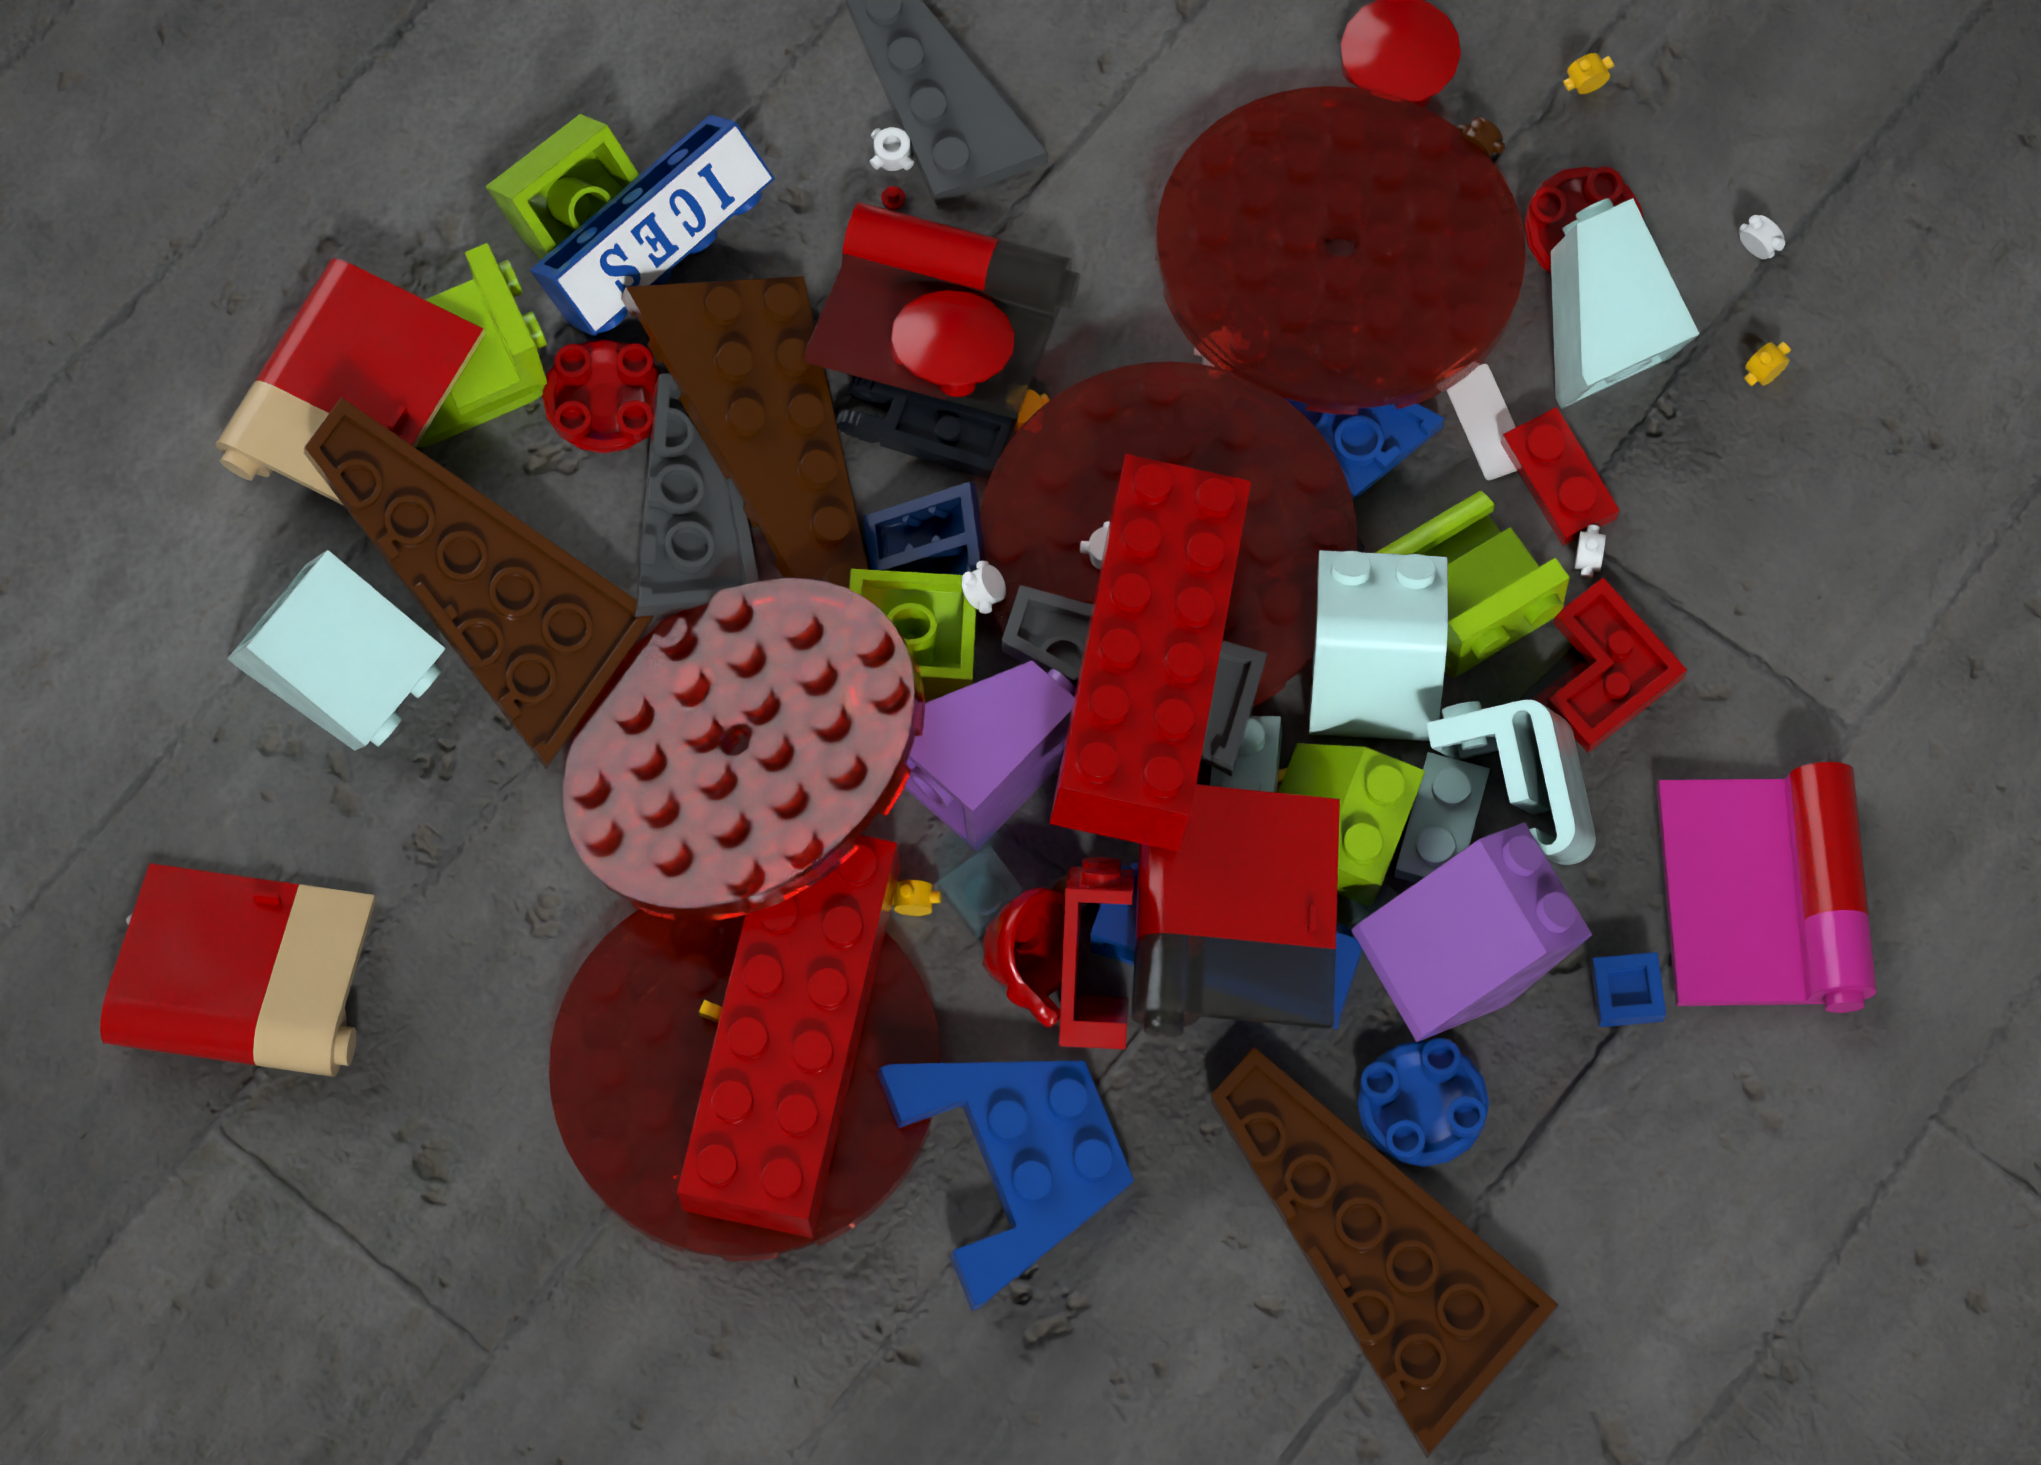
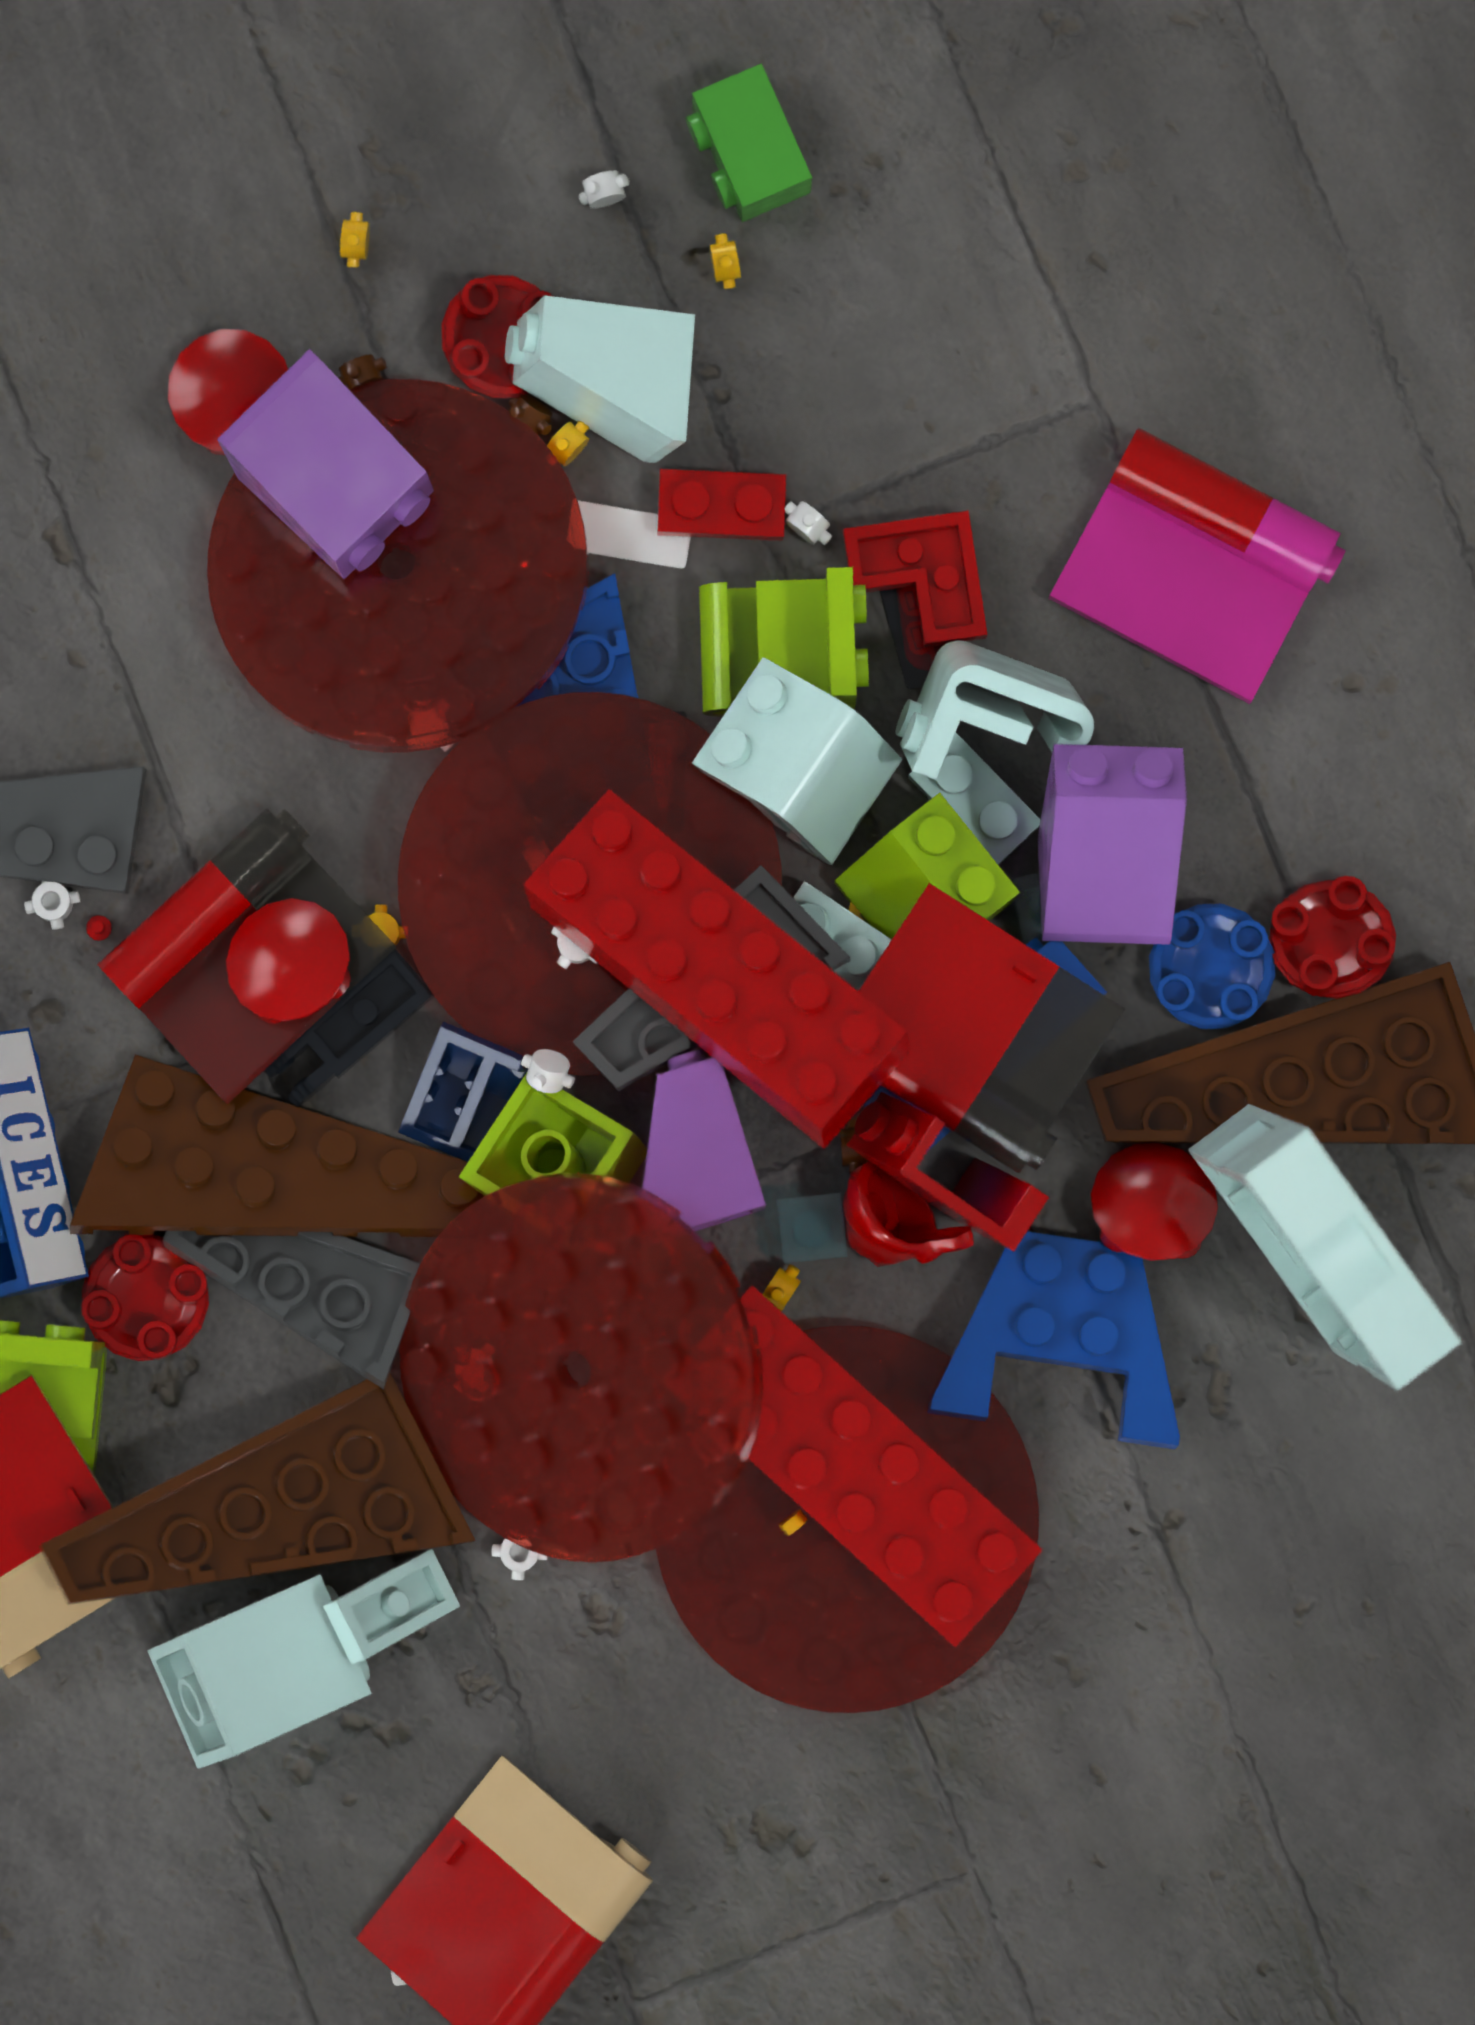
camera: 65 degrees left, 15 degrees up
(451, 722) = (391, 1606): none -> light aqua plate
(552, 812) = (516, 1558): none -> white piece
(1181, 1167) = (1153, 1202): none -> red dish
(1224, 1296) = (1324, 1245): none -> light aqua tile
(1381, 126) = (326, 466): none -> medium lavender slope
(1514, 1192) = (1332, 938): none -> red dish
(1530, 326) = (569, 442): none -> yellow piece
(1535, 284) = (531, 413): none -> reddish brown piece
(1628, 989) = (1216, 735): blue plate -> none
(1878, 324) = (749, 143): none -> bright green brick

